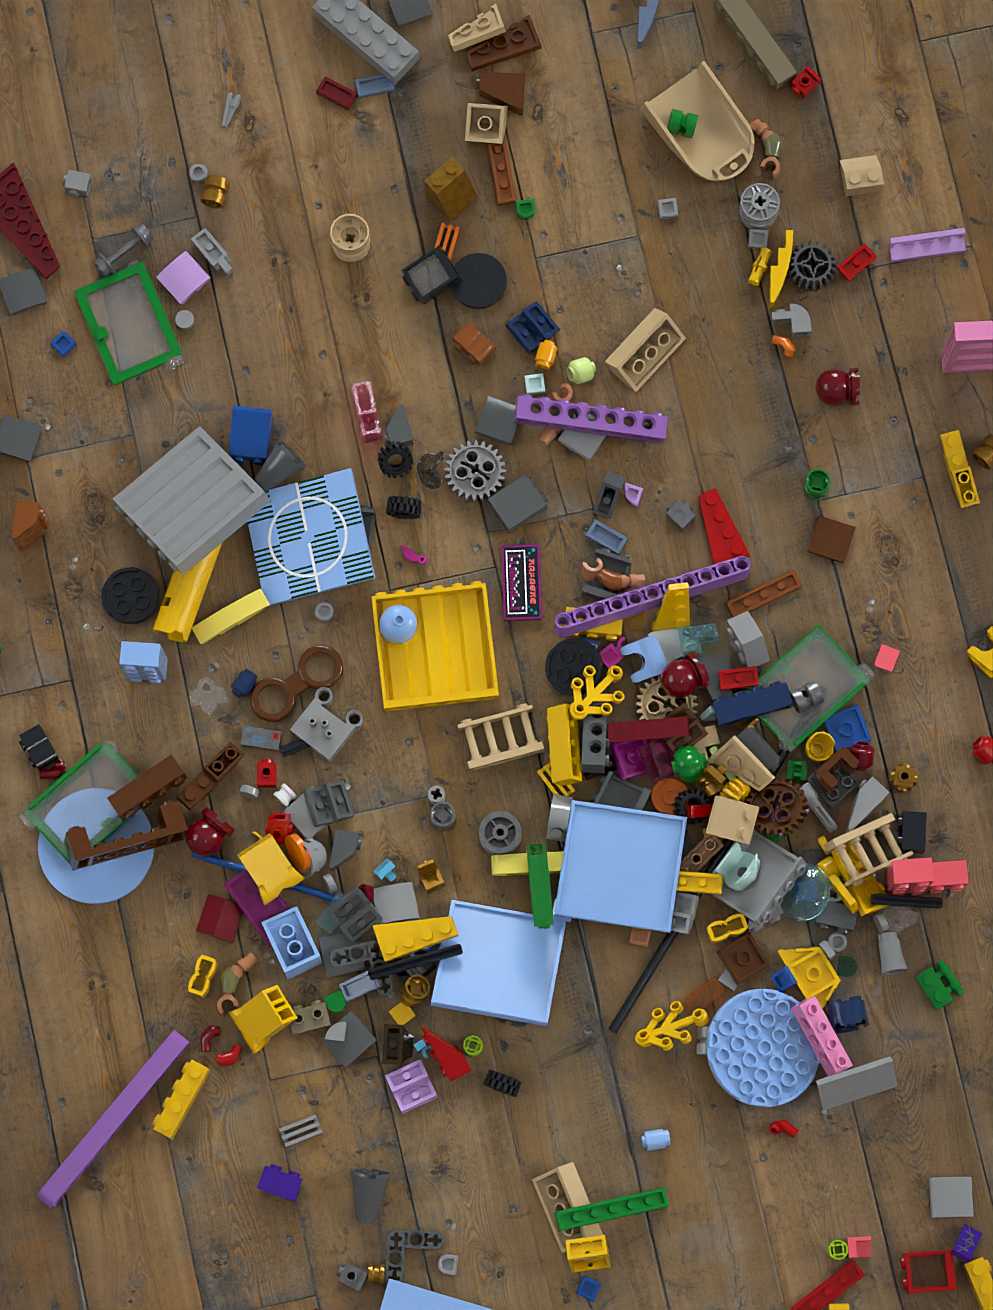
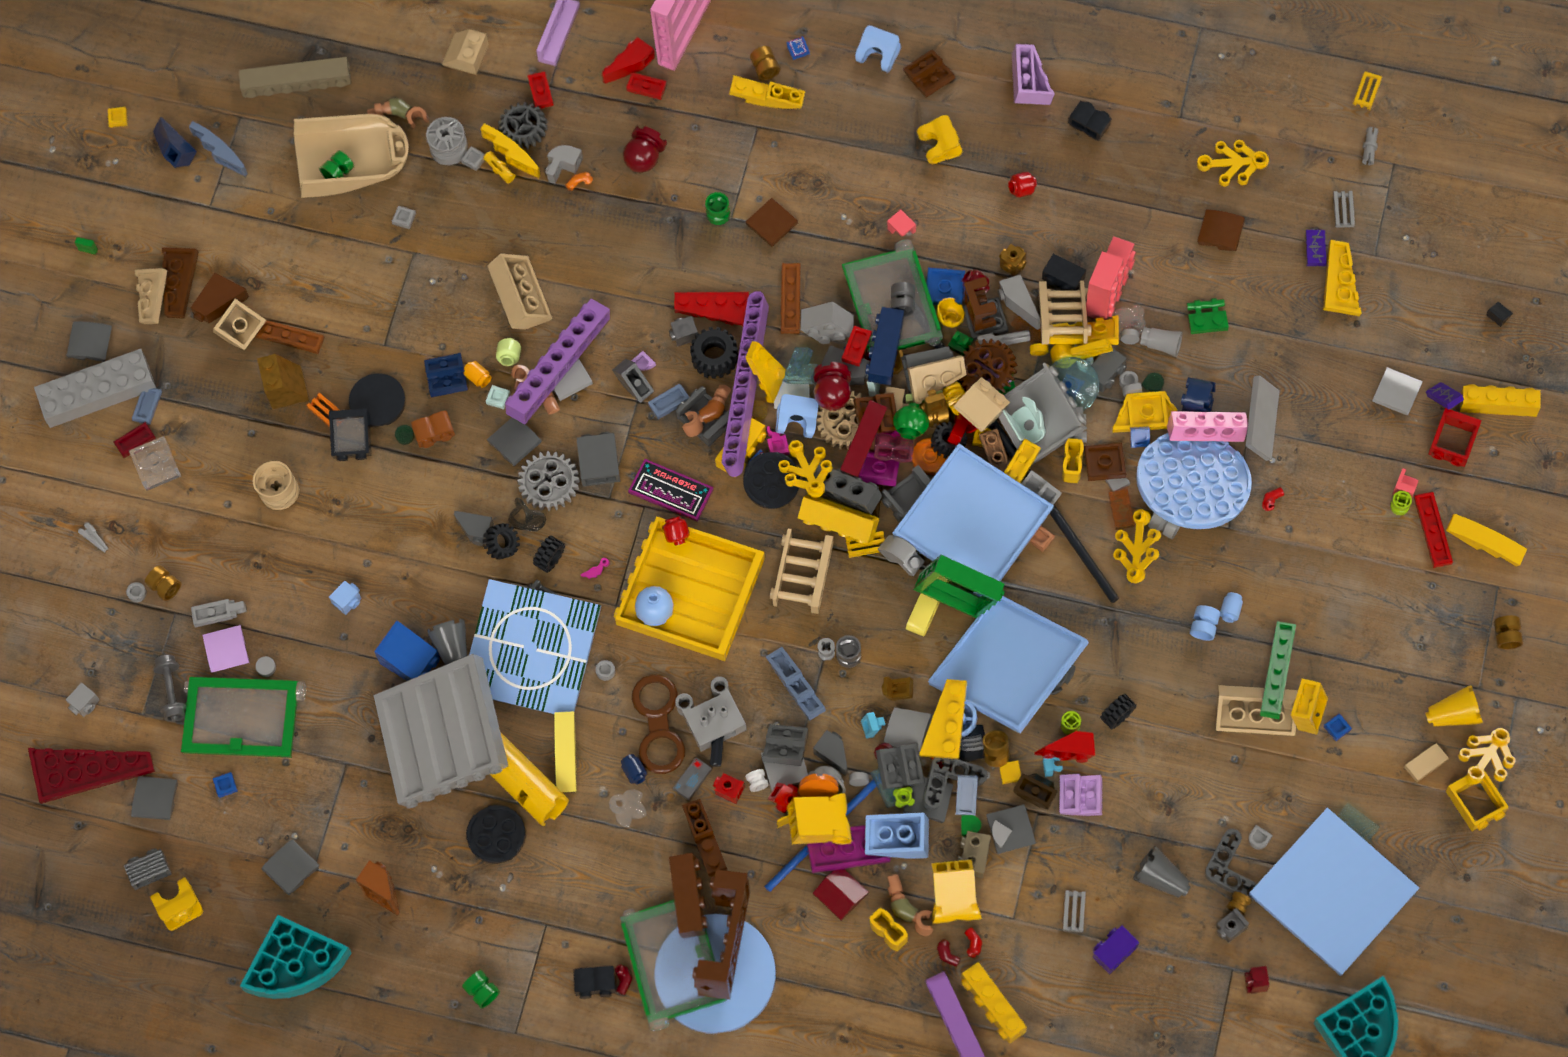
camera: 60 degrees left, 10 degrees down
(143, 662) = (569, 840): light blue brick -> none
(207, 834) = (758, 861): dark red tile -> none
(249, 791) = (737, 811): light grey tile -> none
(279, 354) = (346, 597): none -> light blue brick
(320, 123) = (155, 463): none -> clear brick
(324, 931) = (898, 793): none -> lime plate
(366, 412) = (443, 548): clear pink slope -> none
(392, 784) = (795, 683): none -> sand blue slope
(415, 961) = (972, 730): black axle -> none
(457, 321) = (404, 434): none -> clear green tile
(477, 607) = (676, 530): none -> red head
(502, 822) = (879, 613): flat silver wheel -> none
(525, 209) = (335, 332): green tile -> none
(628, 1122) = (1205, 621): none -> light blue wheel
(671, 537) = (708, 340): none -> black tyre
(804, 90) = (358, 56): red brick -> none
(907, 901) = (1122, 305): black axle -> none
(910, 355) = (646, 86): none -> red plate
(931, 329) = (631, 60): none -> red slope

